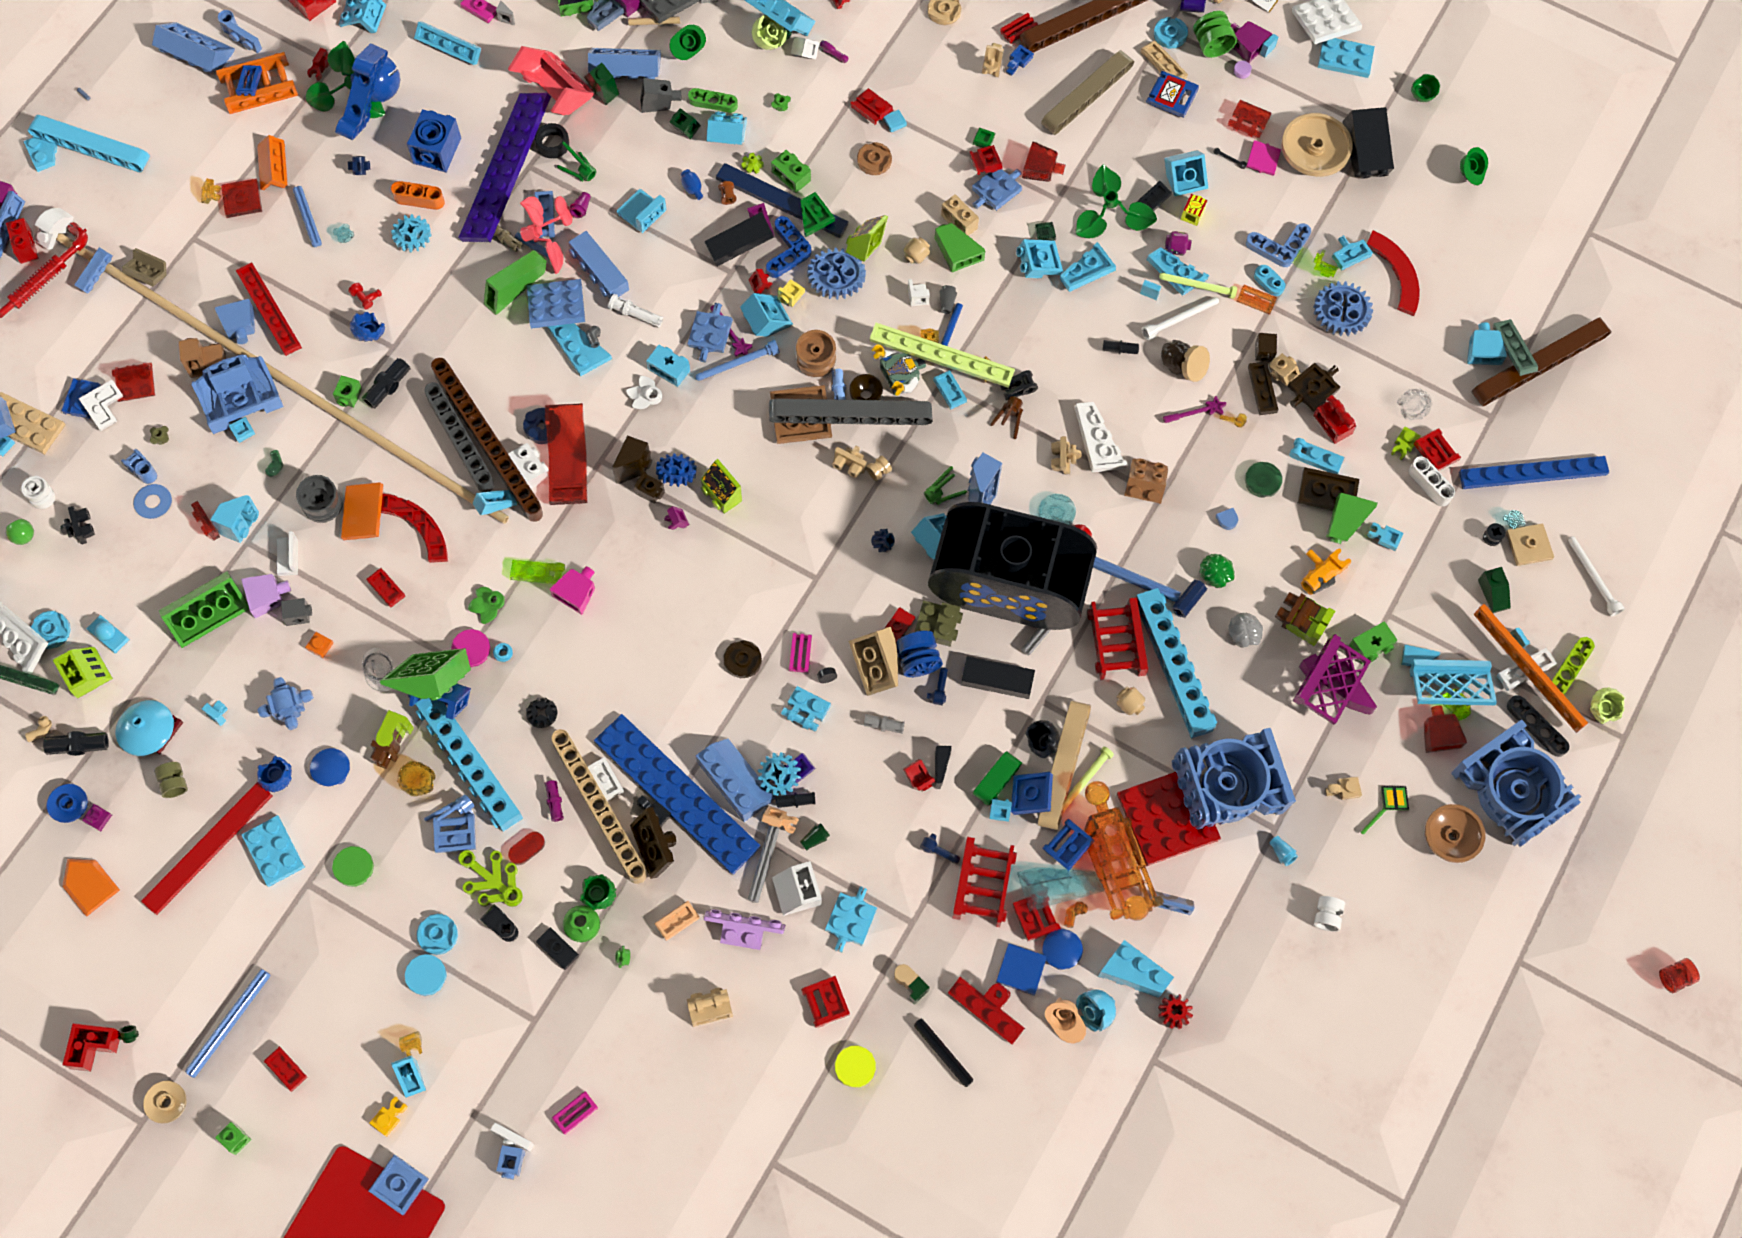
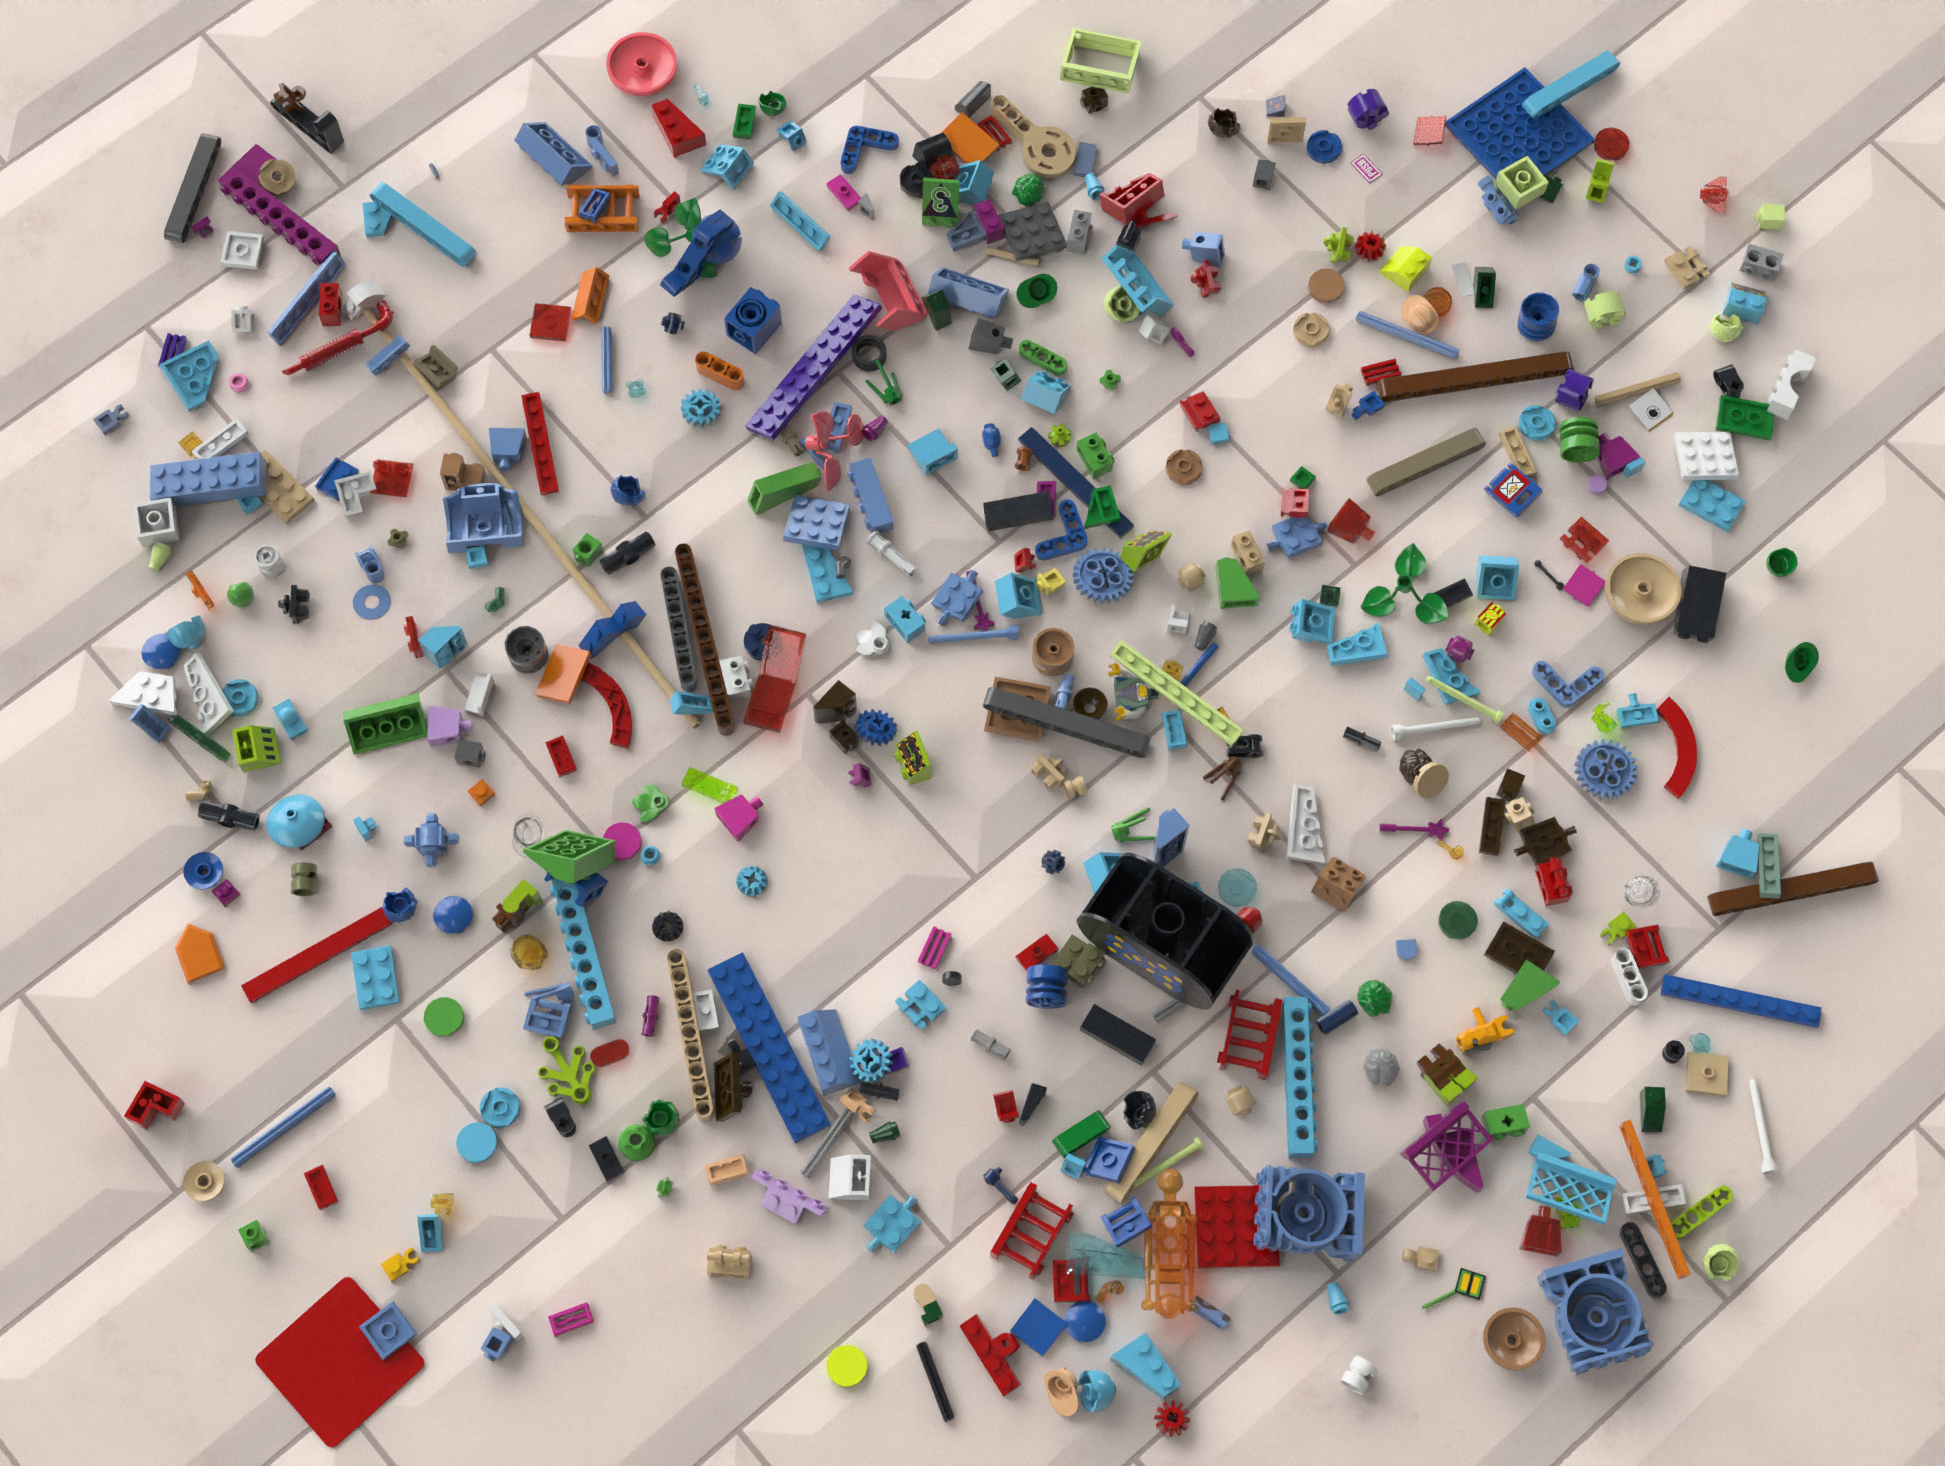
camera: 20 degrees right, 0 degrees up
(128, 1034) = (191, 1106): dark green plate -> none
(209, 190) = (520, 307): clear yellow tile -> none
(357, 290) = (629, 450): red piece -> none
(391, 457) = (606, 630): none -> blue arch
(613, 651) = (756, 887): none -> medium azure gear
(742, 659) = (876, 936): dark brown tile -> none
(832, 999) = (847, 1294): red plate -> none
(876, 660) = (1004, 979): tan slope -> none
(938, 697) = (1052, 1034): dark blue piece -> none

